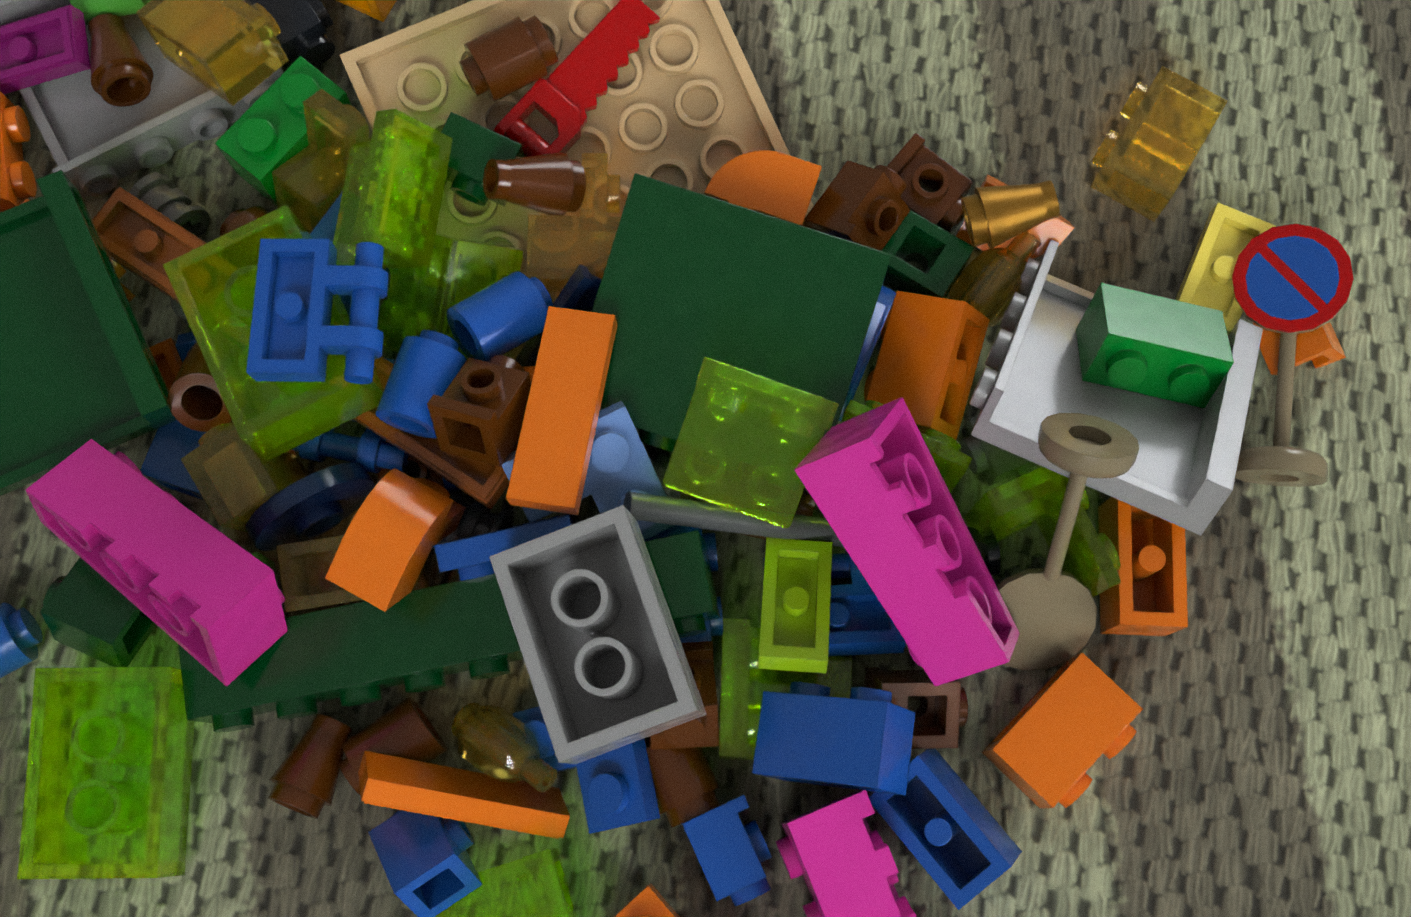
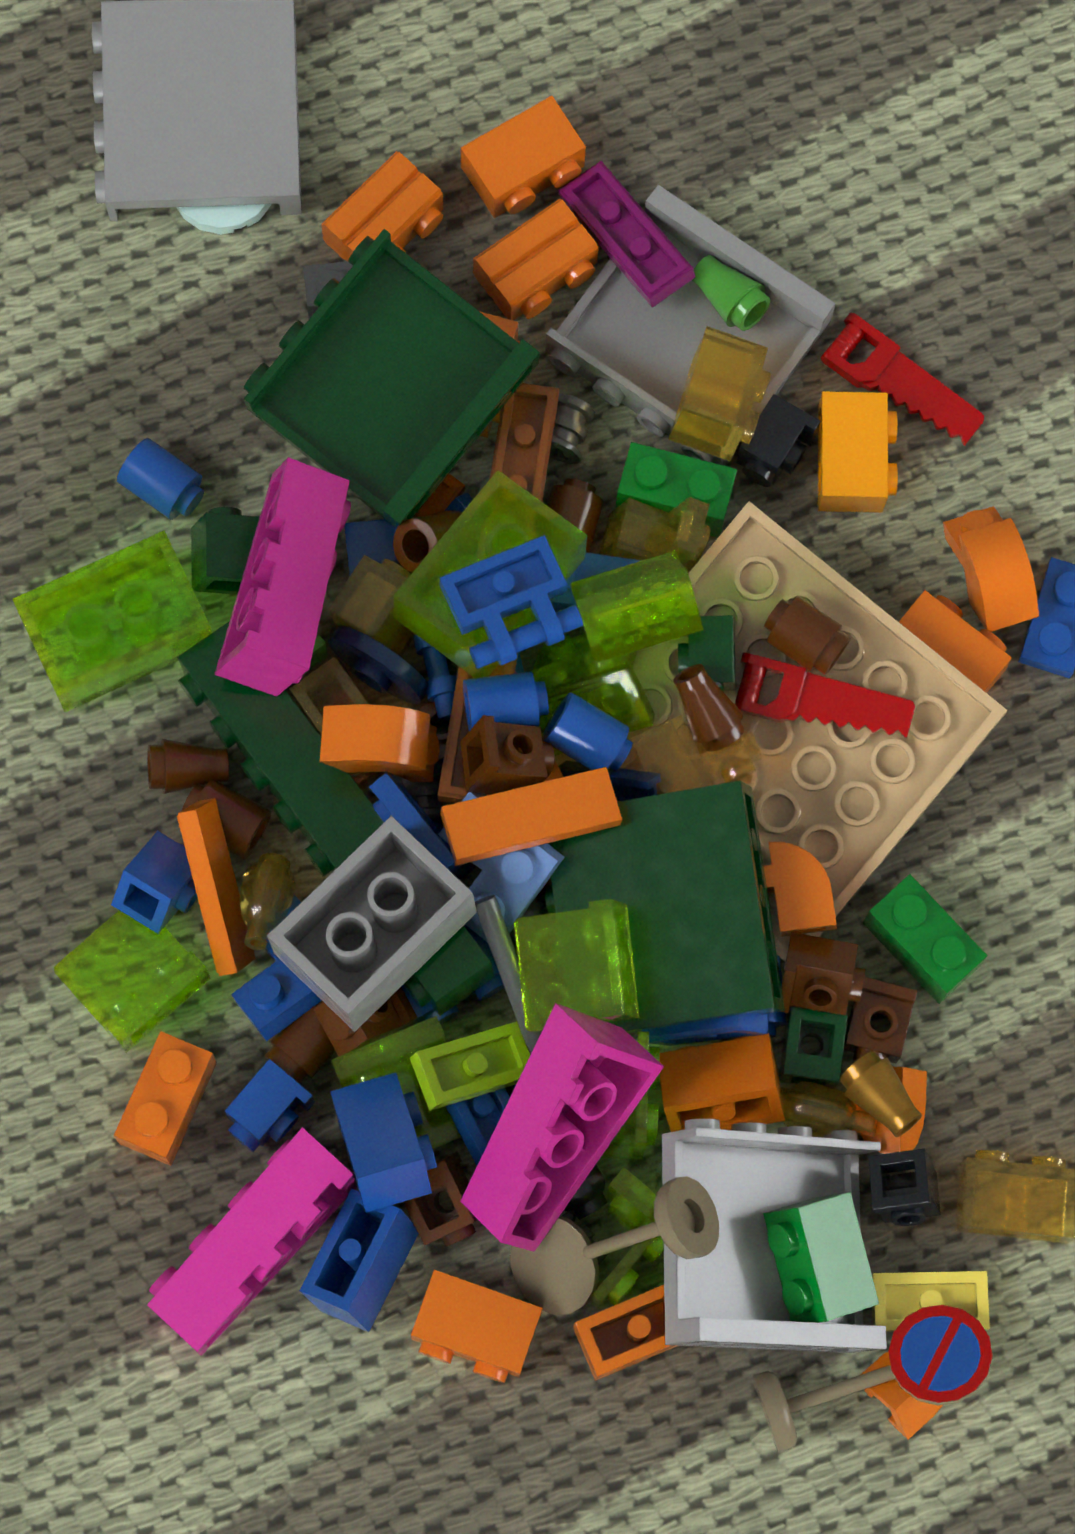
camera: 60 degrees right, 0 degrees up
(117, 64) = (667, 325): reddish brown cone -> none
(862, 107) = (924, 939): none -> green brick
(1107, 236) = (904, 1197): none -> black brick

